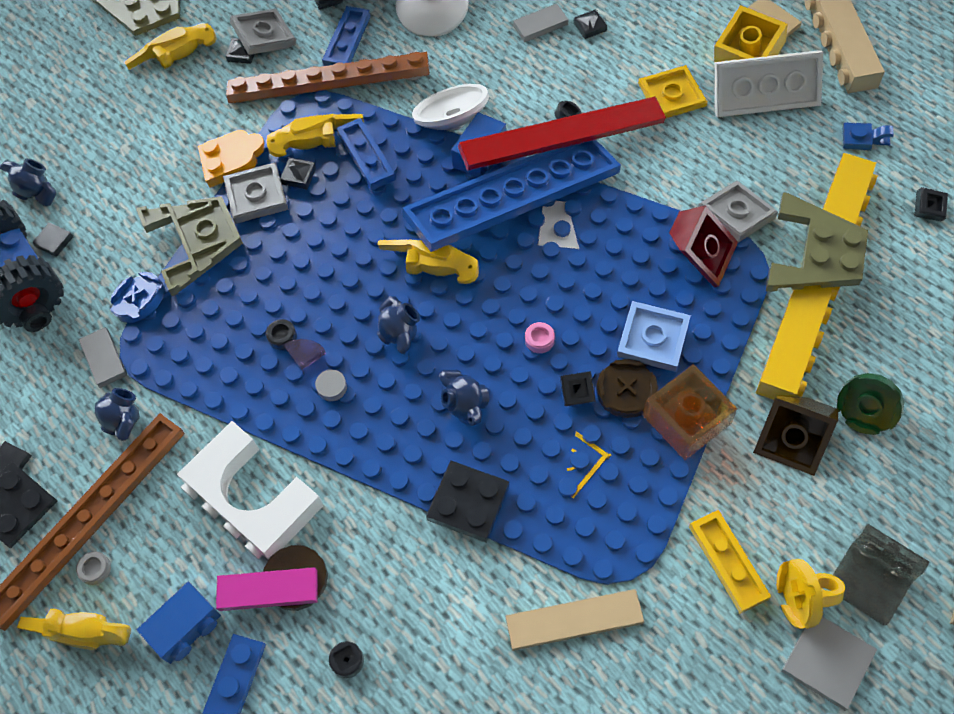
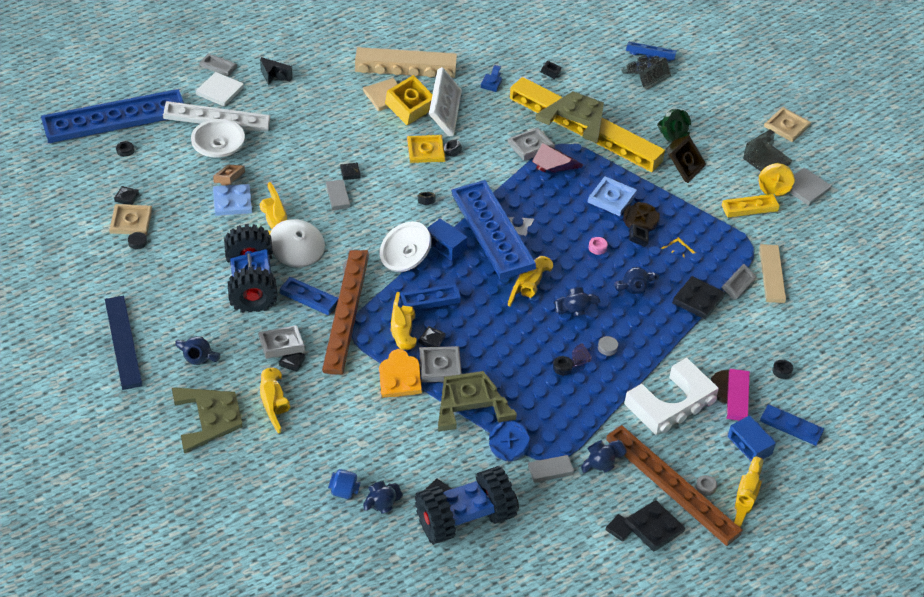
camera: 85 degrees left, 15 degrees down
(47, 140) = (344, 484): none -> blue head
(531, 564) = (739, 282): none -> light grey tile
(560, 133) = (454, 197): red tile -> none
(685, 120) = (452, 147): none -> black tile
(689, 411) = (668, 190): clear orange brick -> none

